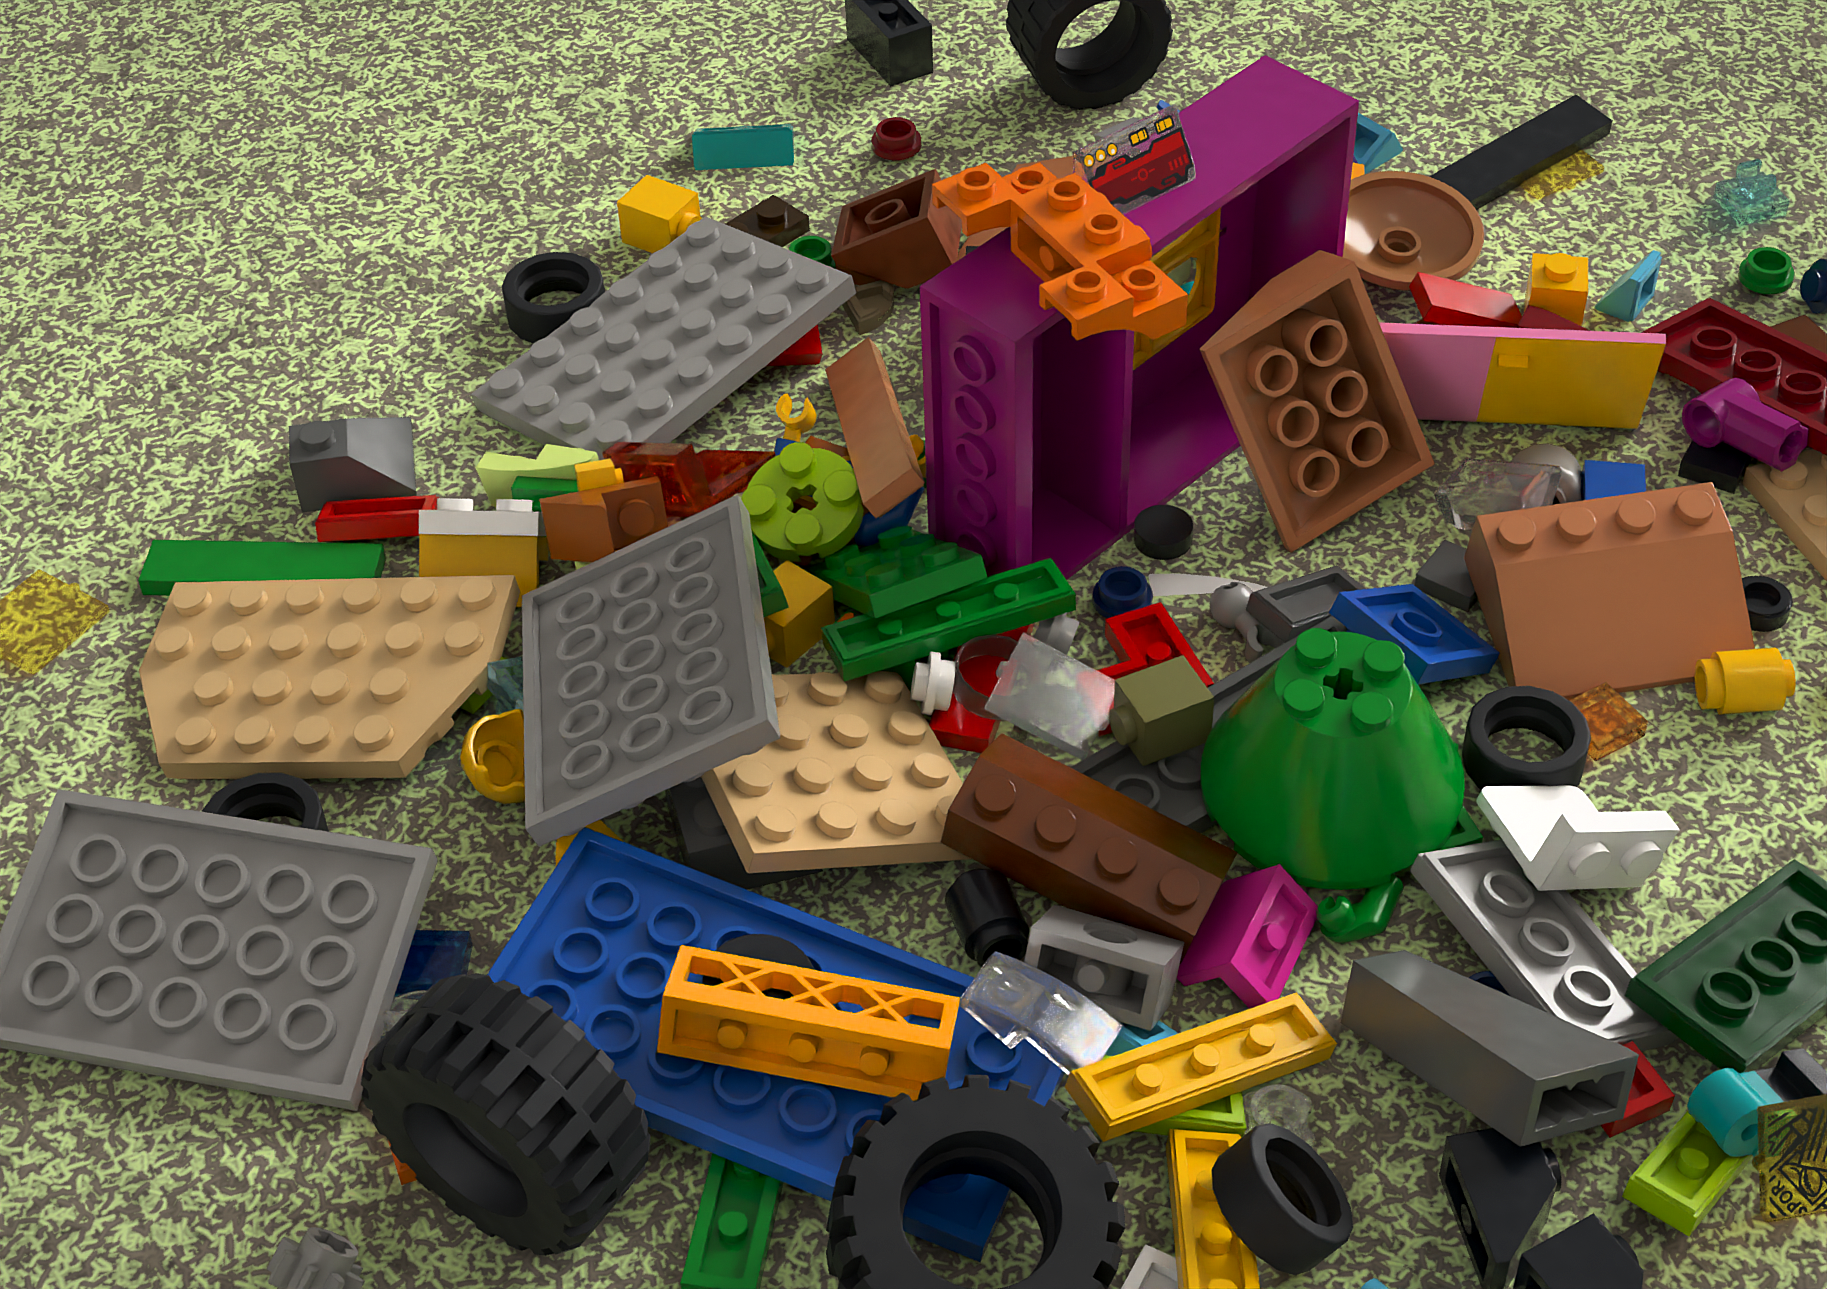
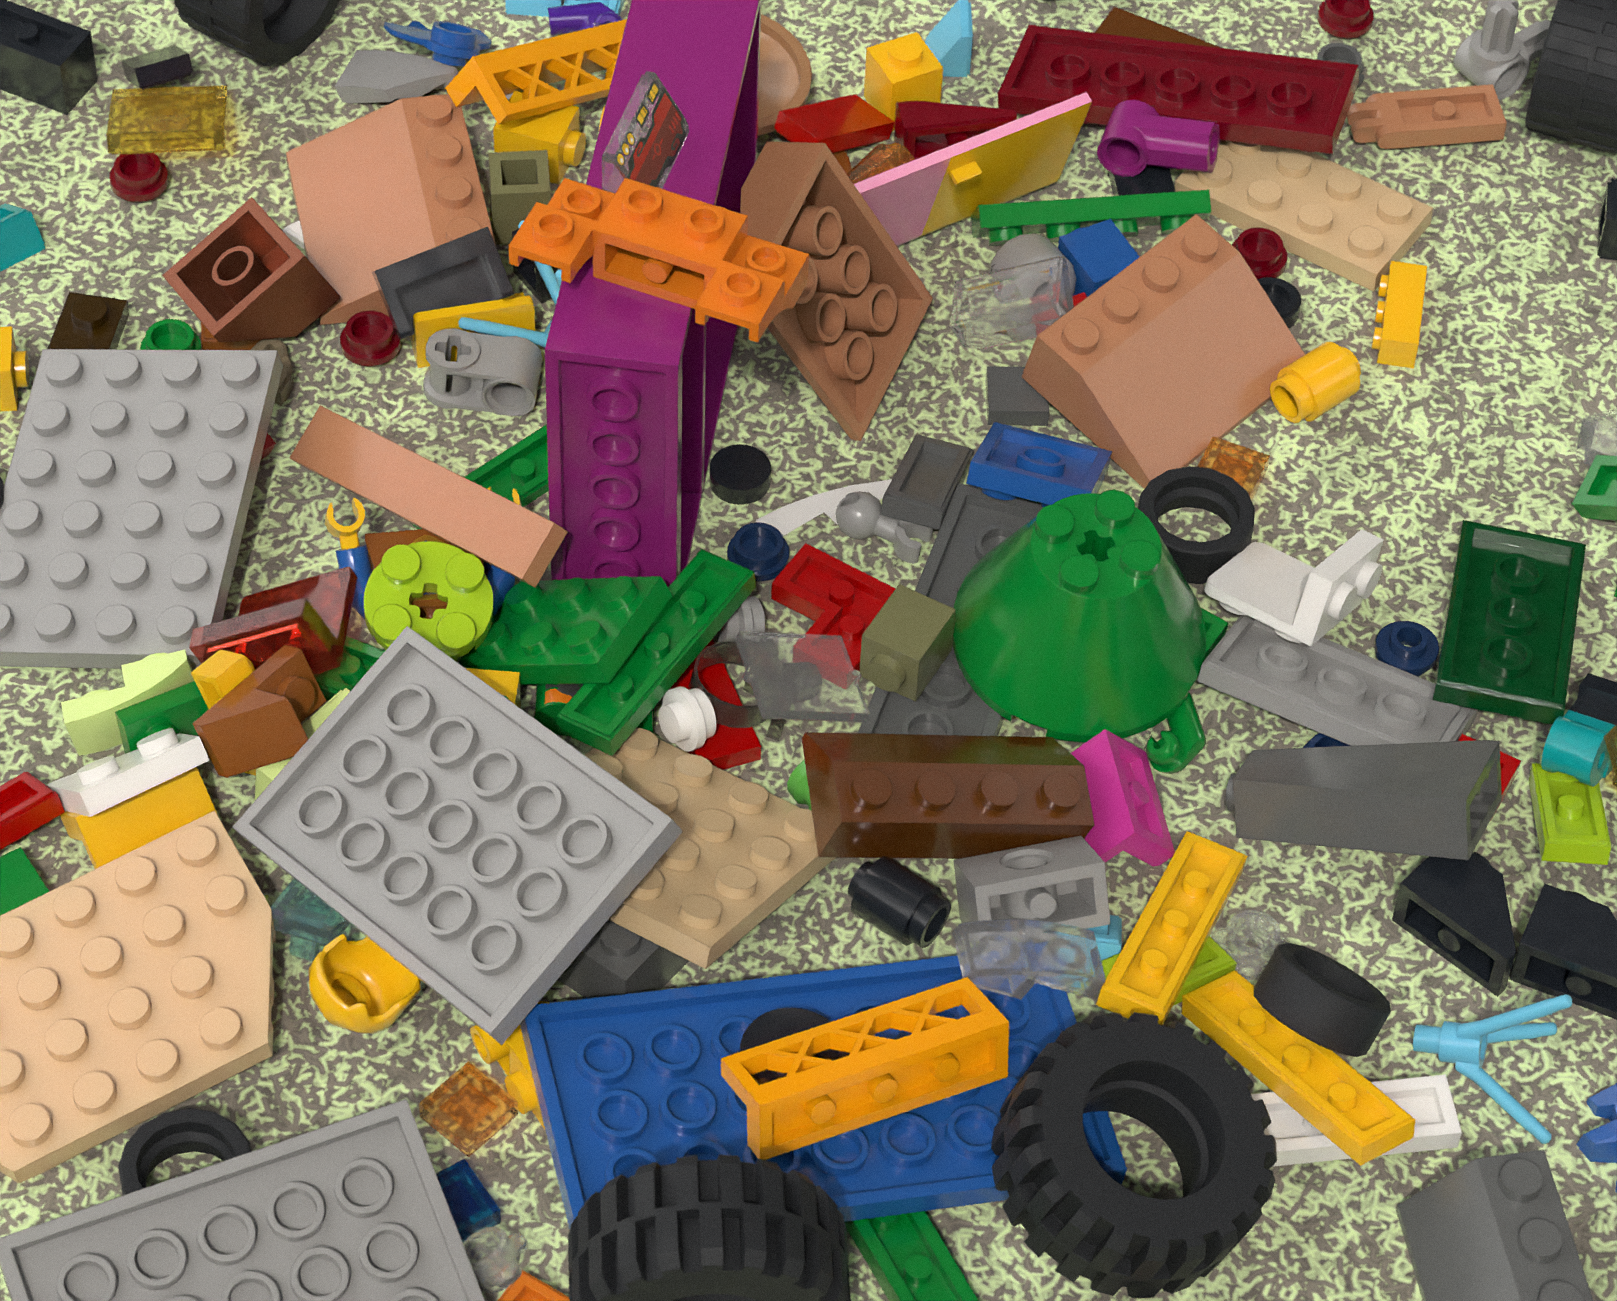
camera: 40 degrees left, 5 degrees up
(508, 894) = (468, 1109): none -> clear orange tile
(947, 109) = (168, 119): none -> clear yellow tile
(975, 75) = (157, 67): none -> black tile
(1635, 929) = (1414, 659): none -> dark blue plate
(1662, 466) = (1063, 216): none -> green plate
(1778, 556) = (1262, 252): none -> dark red plate

